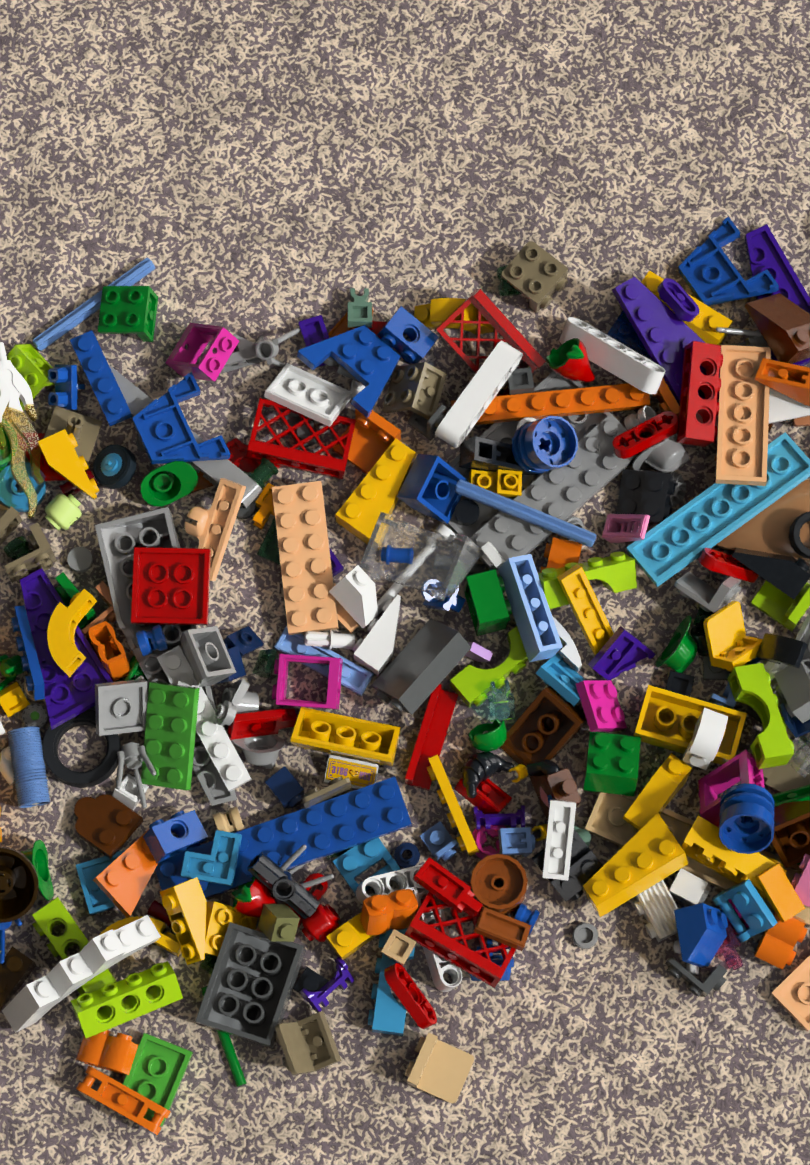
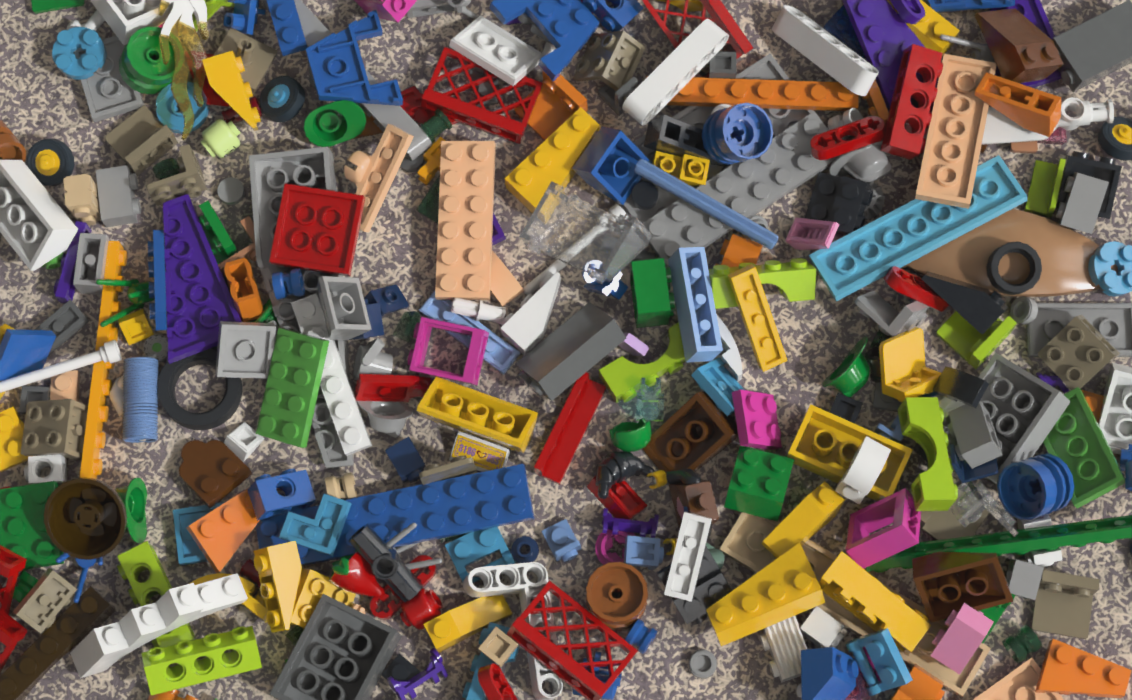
camera: 15 degrees right, 0 degrees up
(62, 631) = (196, 260): yellow arch -> none
(132, 756) = (250, 405): light grey plant -> none
(225, 713) = (353, 371): light grey plate -> none
(278, 922) = (374, 602): olive brick -> none
(357, 596) = (513, 267): white slope -> none
(388, 911) = (492, 607): orange brick -> none
(397, 555) = (562, 230): blue pin -> none
(447, 888) = (560, 590): red hinge -> none
(448, 796) = (577, 492): yellow plate -> none
(492, 556) = (662, 243): white plate -> none
(502, 928) = (612, 643): dark orange tile -> none
(571, 361) = (780, 51): hat -> none
(619, 654) = (785, 368): dark purple wing -> none
(746, 818) = (893, 562): blue wheel -> none
(780, 892) = (919, 648): light orange tile -> none

